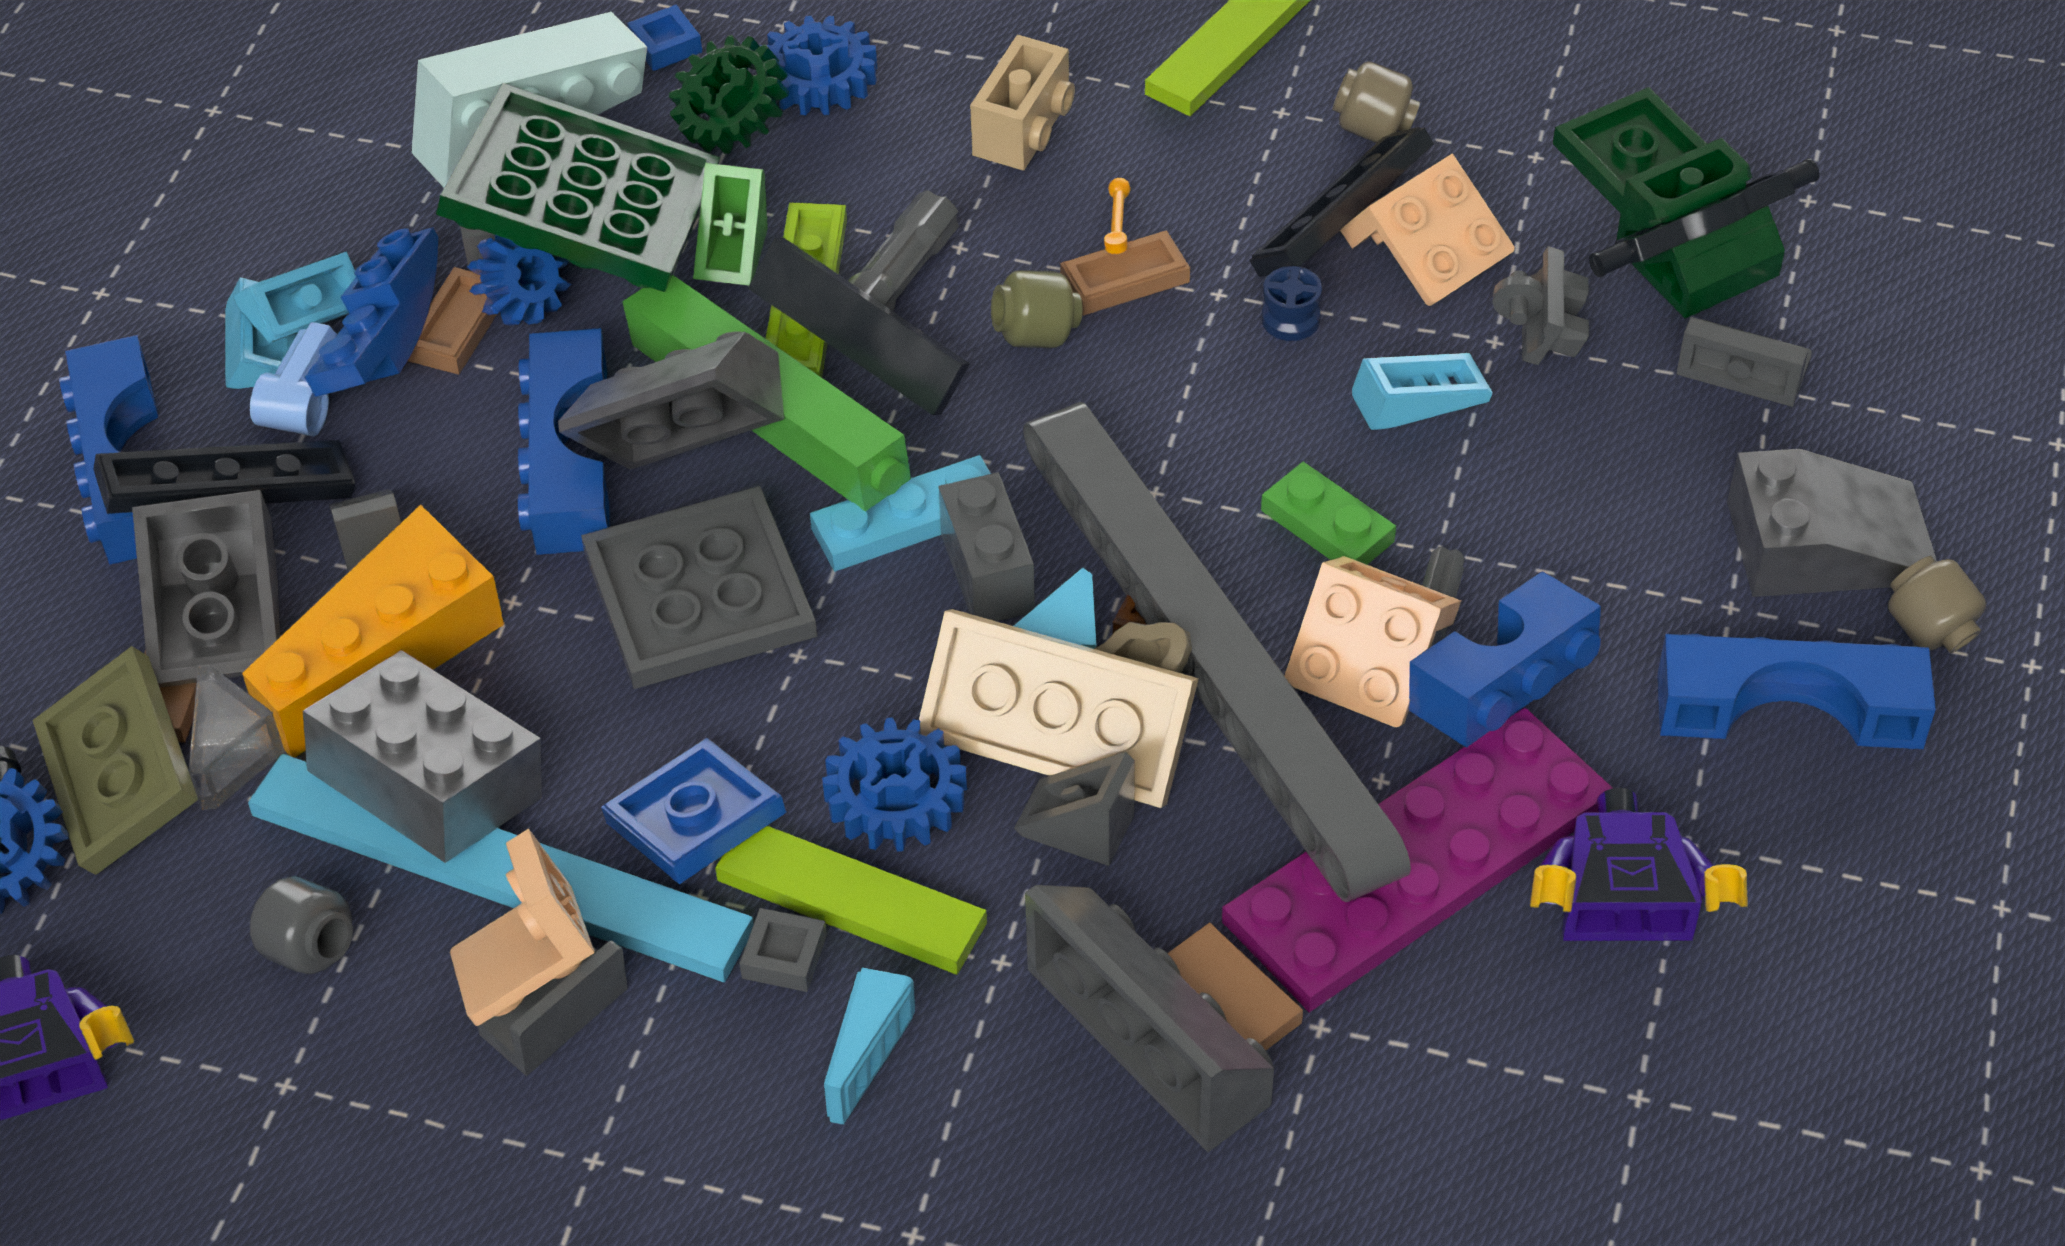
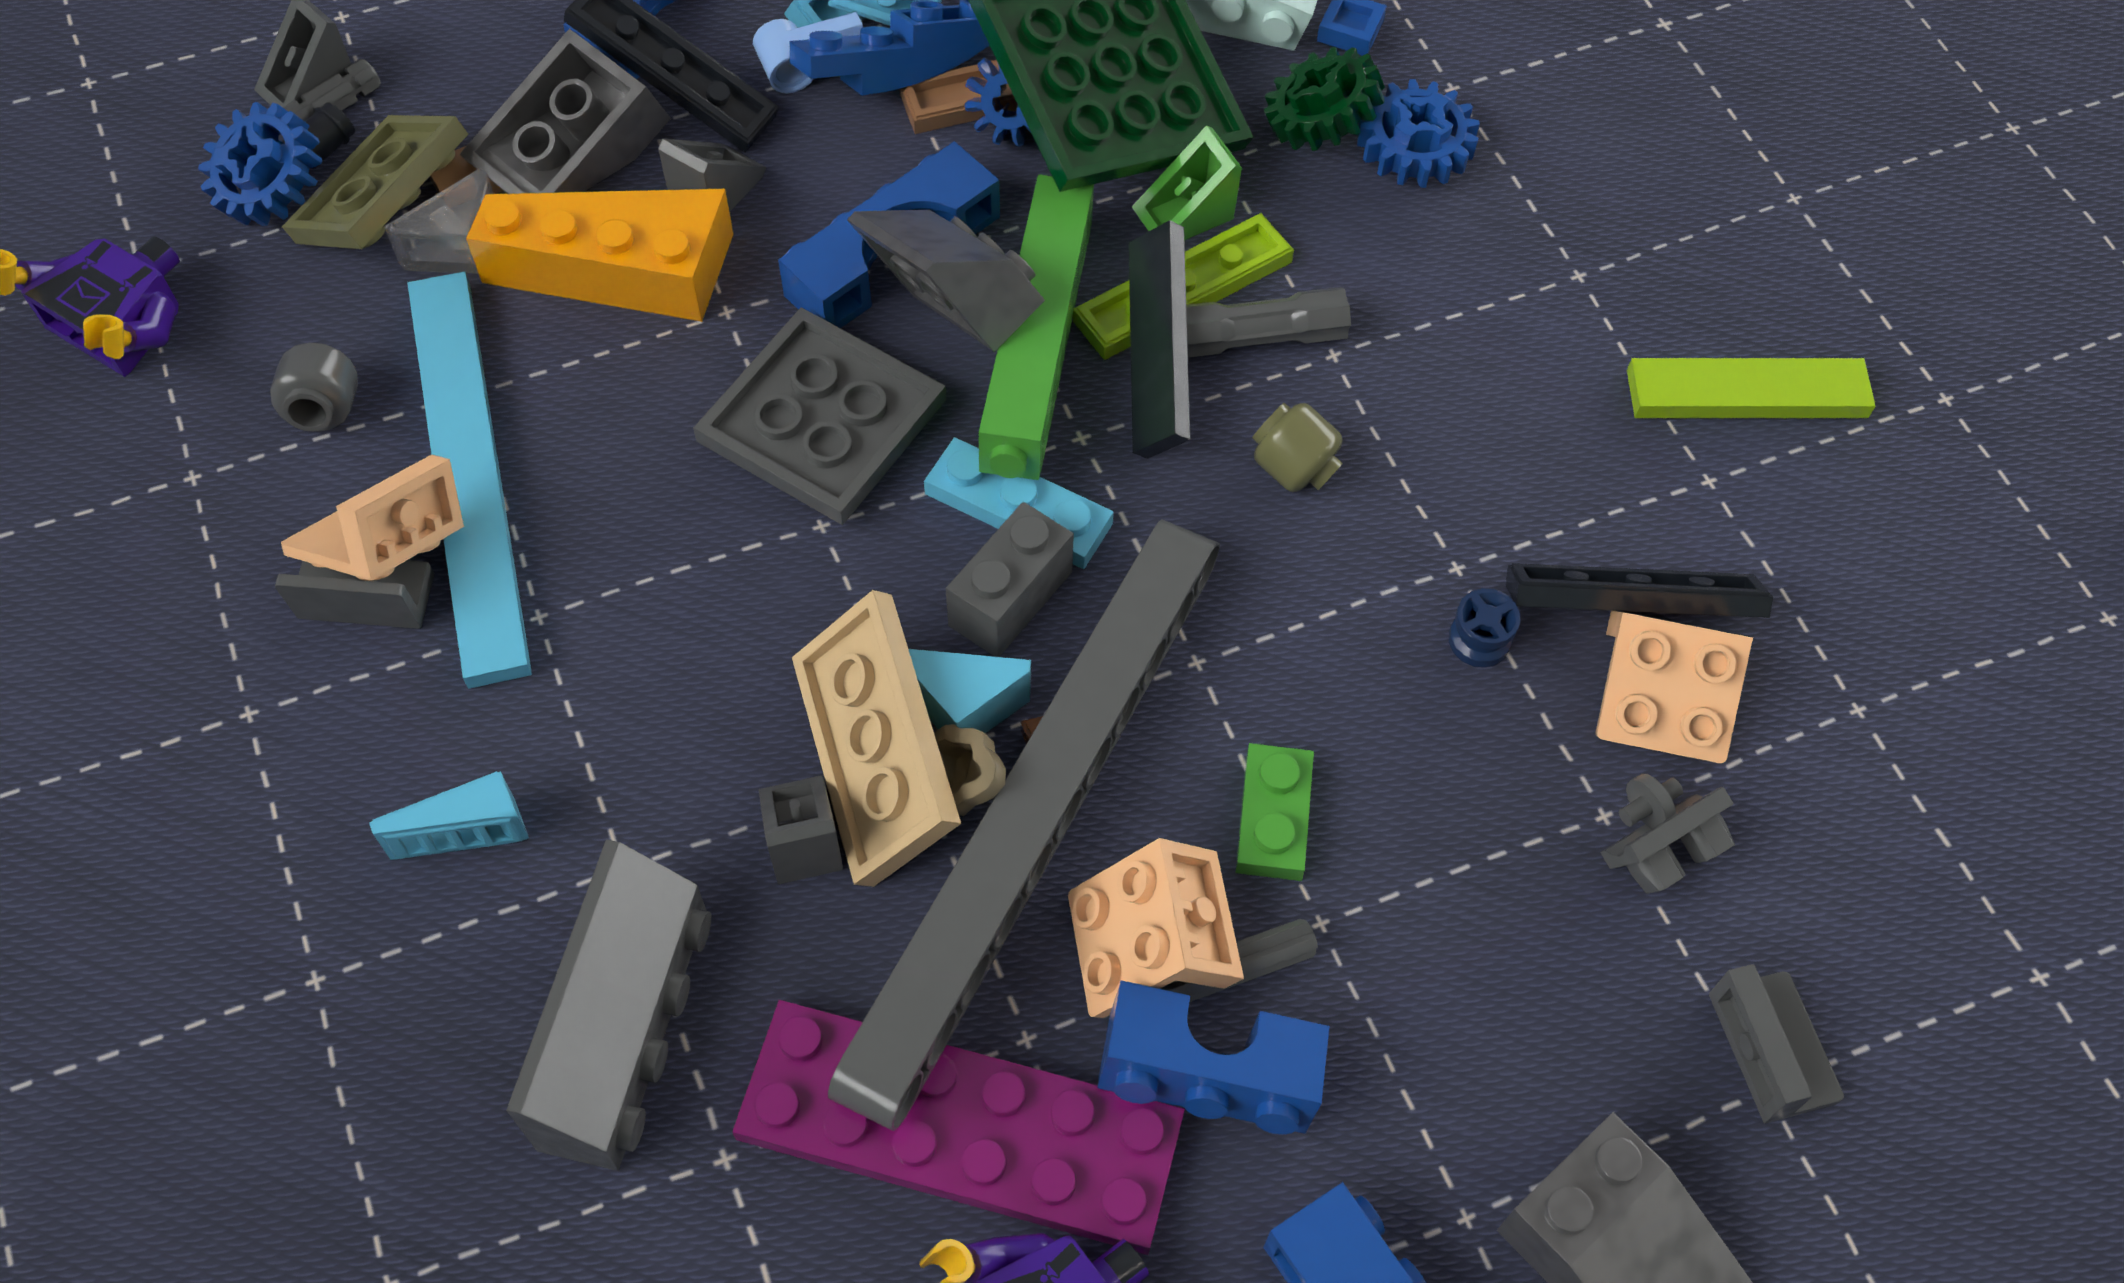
camera: 50 degrees right, 10 degrees up
(423, 755) = (502, 352): flat silver brick -> none
(693, 810) = (599, 557): blue tile -> none
(783, 949) = (509, 706): dark grey plate -> none
(854, 897) = (603, 721): lime tile -> none
(894, 784) = (748, 682): blue gear -> none
(1021, 102) = (1504, 287): tan brick -> none
(1113, 279) = (1410, 485): medium nougat tile -> none
(1116, 241) = (1426, 454): light orange hinge -> none
(1240, 988) = (702, 1063): medium nougat tile -> none
(1375, 101) = (1776, 541): dark tan head -> none
(1398, 392) = (1455, 794): medium azure slope -> none
(1680, 201) = (1892, 863): dark green piece -> none

